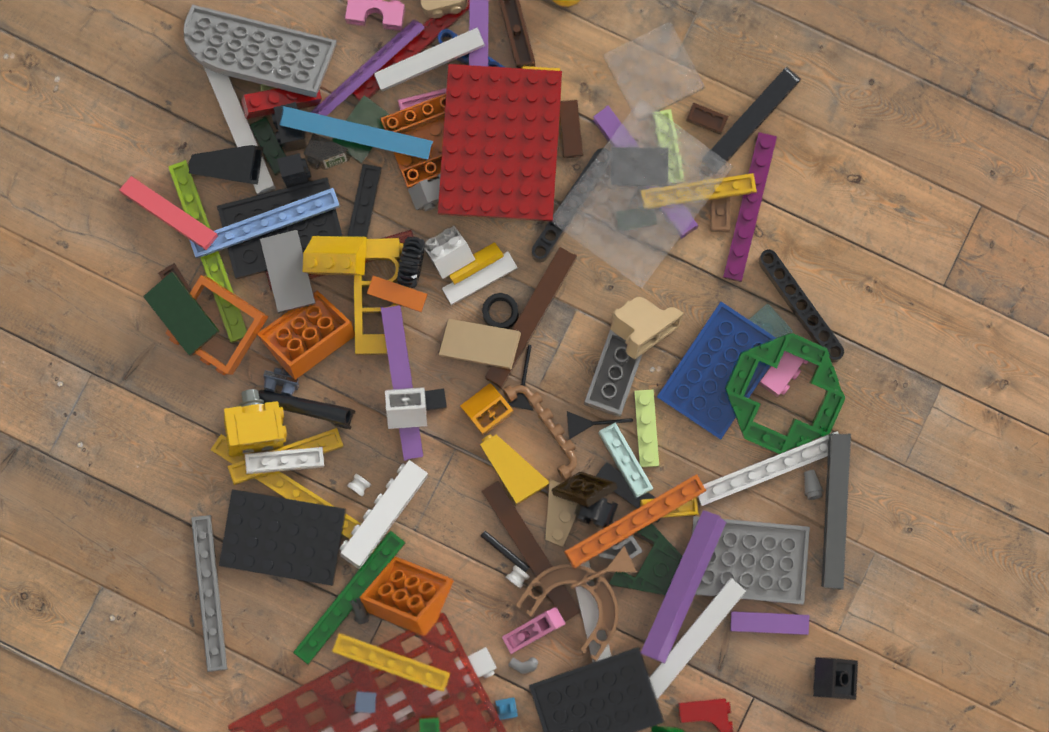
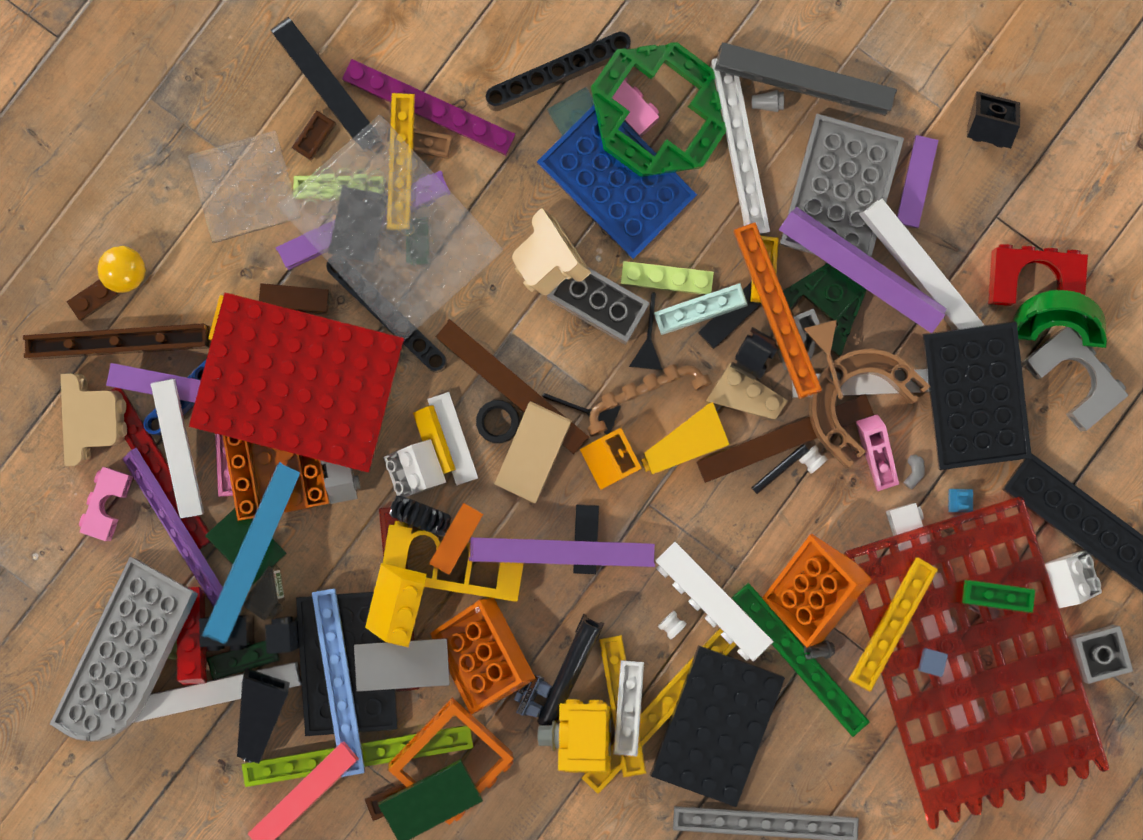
camera: 85 degrees left, 5 degrees up
(364, 201) = (334, 558): black tile -> none
(406, 408) = (595, 552): white slope -> none
(584, 489) = (730, 361): dark brown tile -> none

